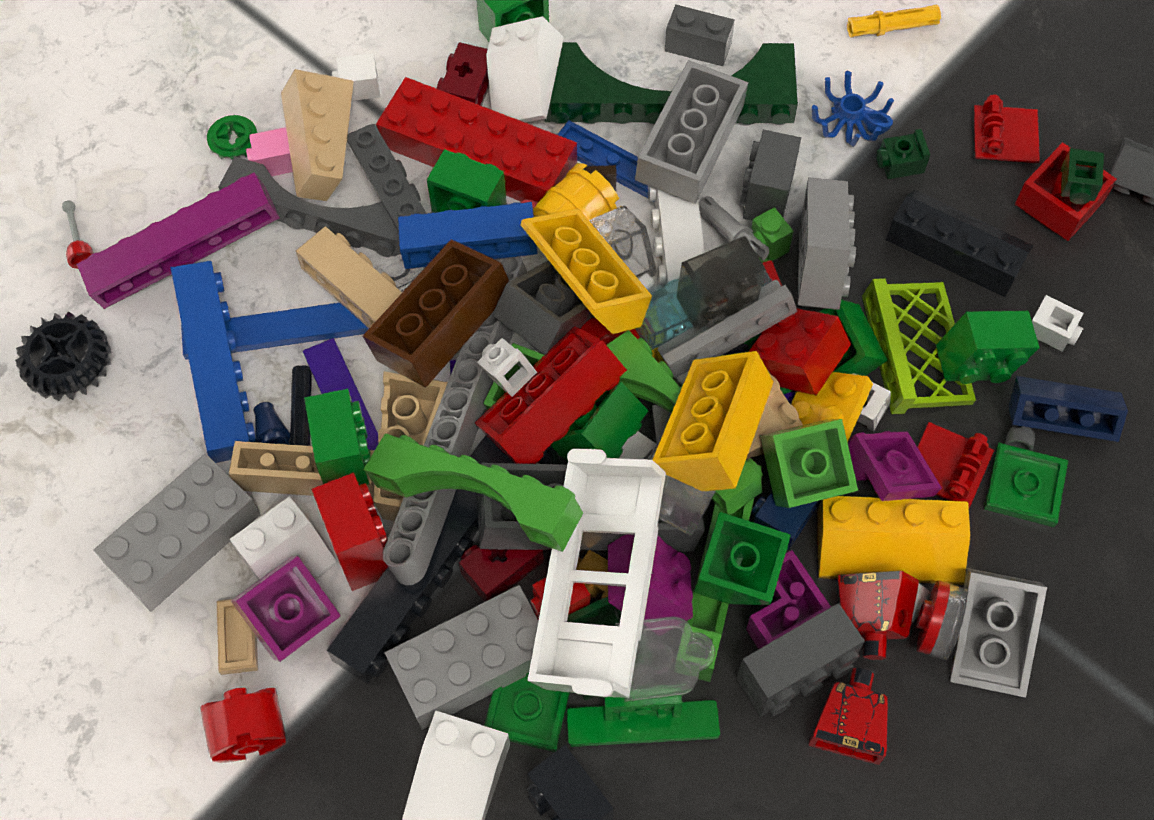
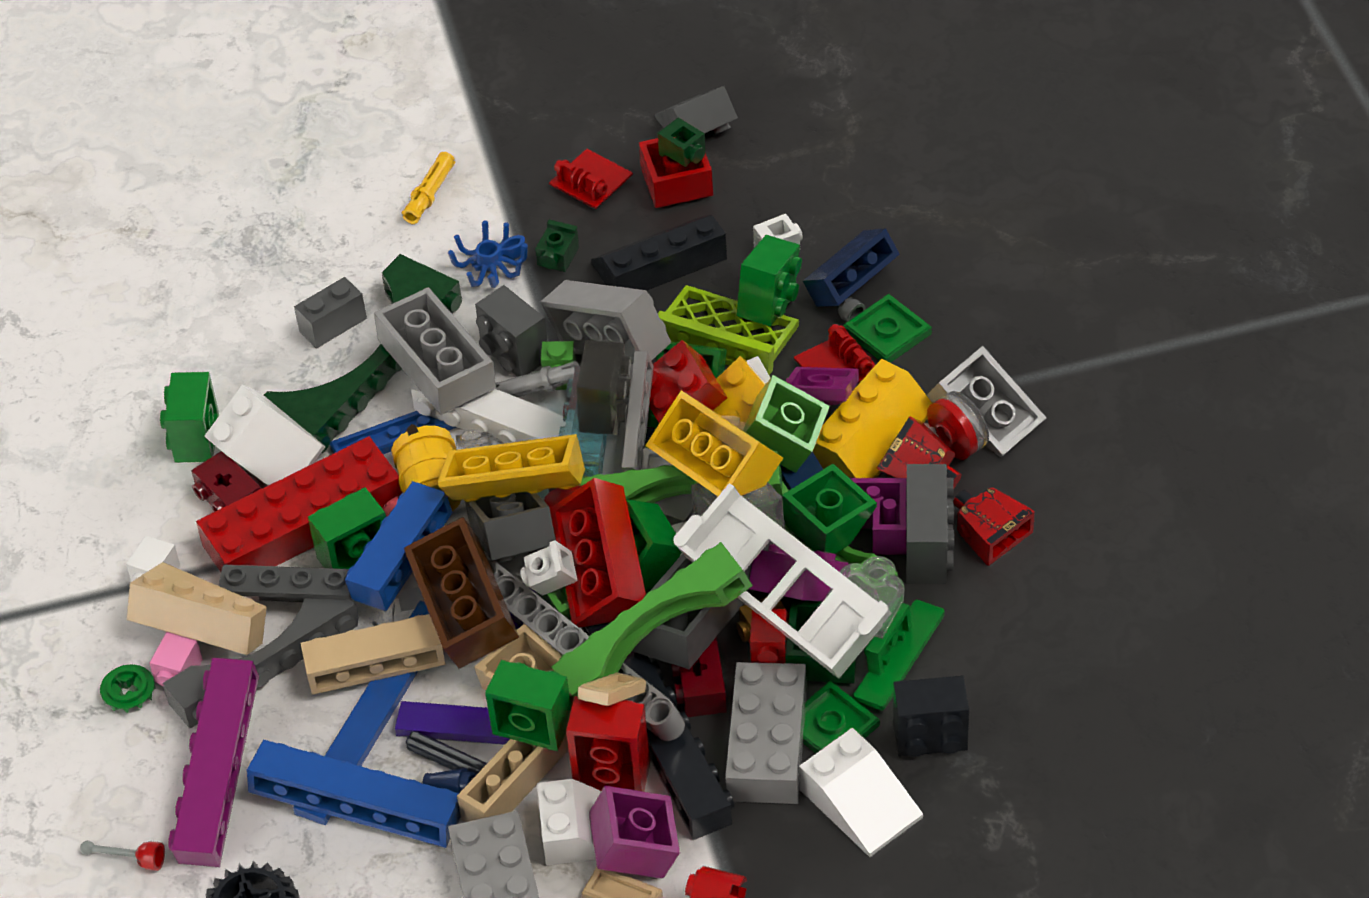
camera: 55 degrees left, 15 degrees down
(382, 499) = (611, 689): none -> tan tile

